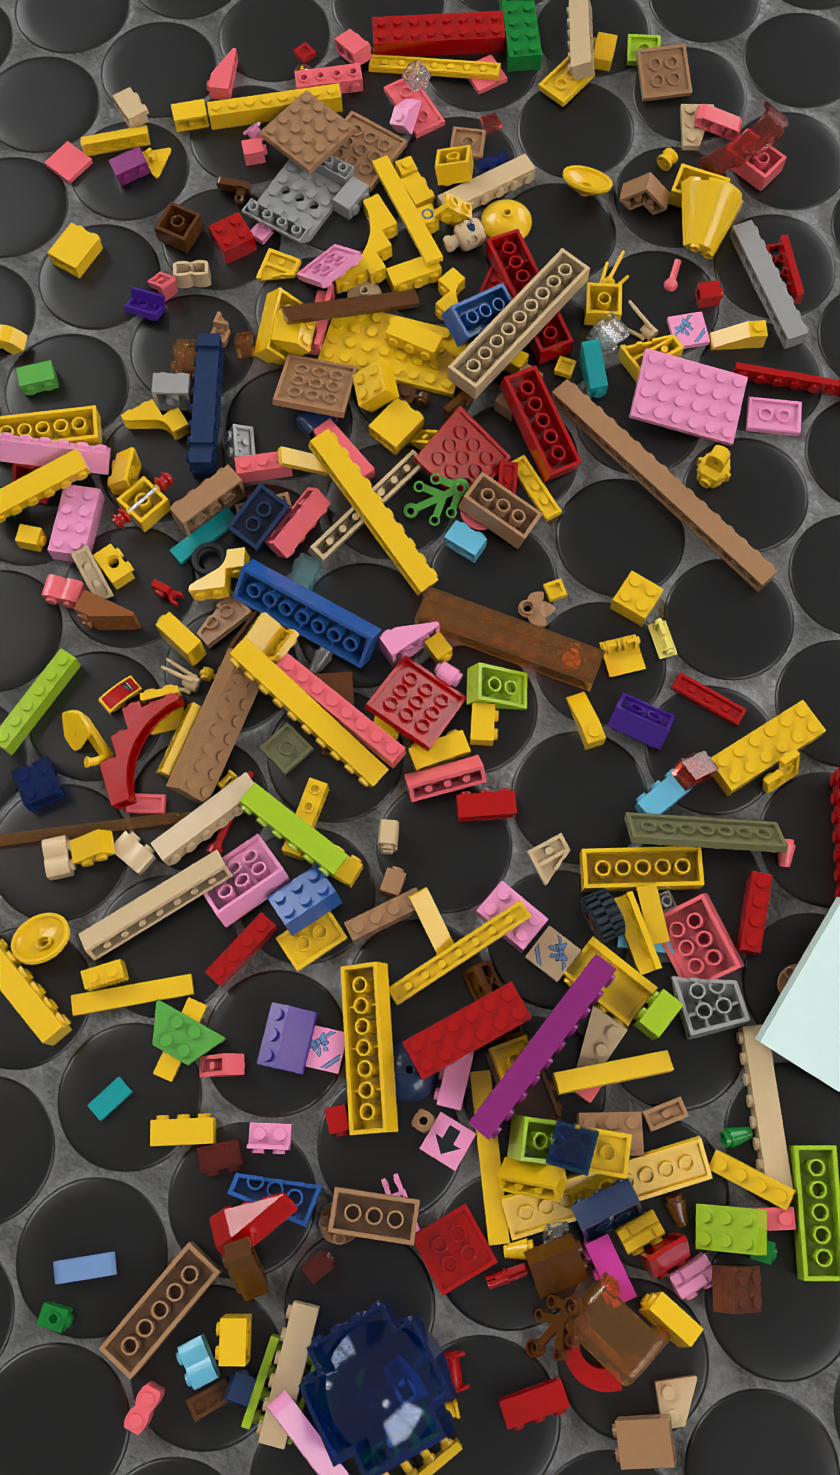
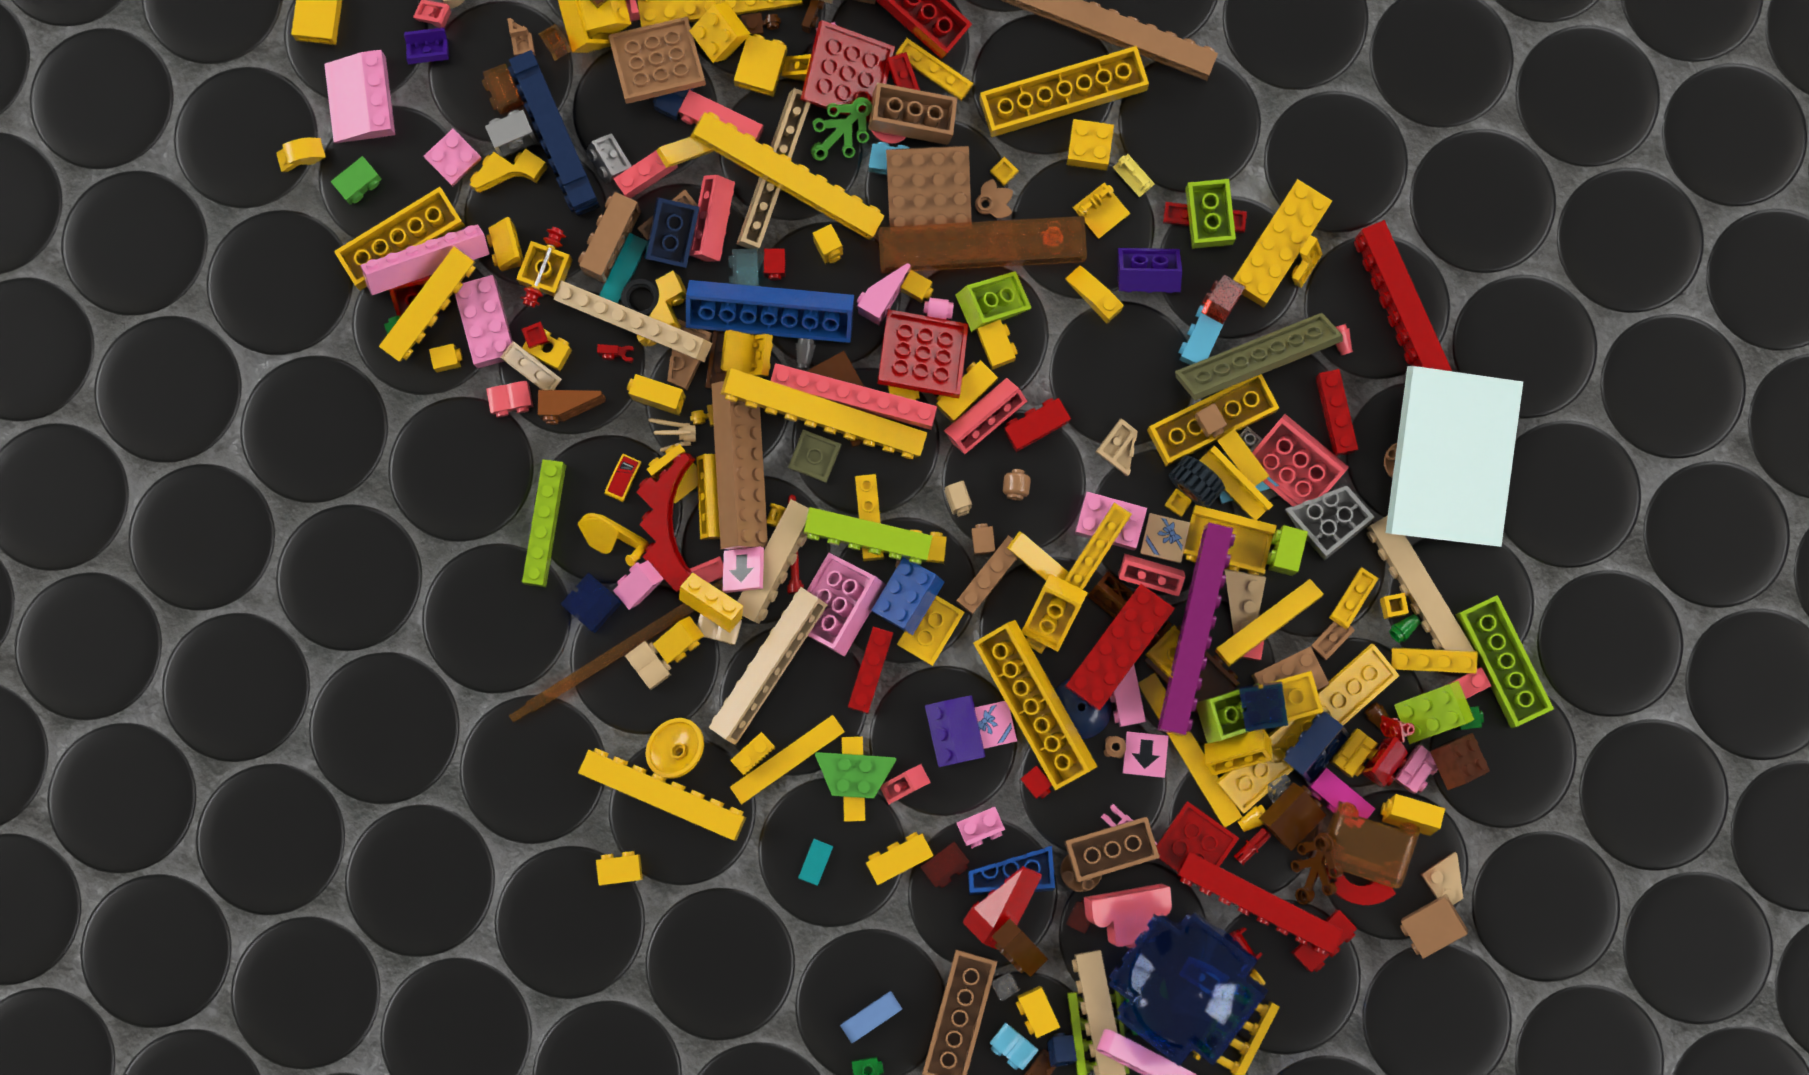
camera: 25 degrees left, 10 degrees up
(76, 320) = (359, 97): none -> bright pink slope
(83, 785) = (638, 584): none -> bright pink brick
(108, 549) = (535, 335): none -> red tile
(121, 393) = (452, 157): none -> bright pink plate
(134, 827) = (711, 602): none -> yellow brick
(176, 812) = (743, 569): none -> bright pink tile
(191, 572) = (633, 321): none -> tan brick
(219, 1299) = (1005, 986): none -> clear bracket
(331, 579) = (774, 263): none -> red brick
(362, 1282) = (1128, 911): none -> coral brick
(381, 581) = (828, 244): none -> yellow brick
(424, 972) = (1054, 612): none -> yellow slope
(444, 848) = (1016, 485): none -> medium nougat head
(486, 571) = (928, 185): none -> medium nougat plate
(491, 1340) = (1260, 903): none -> red brick
(526, 980) = (1151, 575): none -> coral brick
(578, 928) = (1178, 502): none -> yellow tile
(634, 547) = (1064, 91): none -> yellow brick
(638, 867) = (1211, 421): none -> medium nougat brick
(687, 1226) = (1393, 727): none -> red hinge
(700, 1086) = (1353, 598): none -> yellow tile
(714, 695) = (1210, 213): none -> lime brick
(734, 1110) = (1394, 605): none -> yellow brick

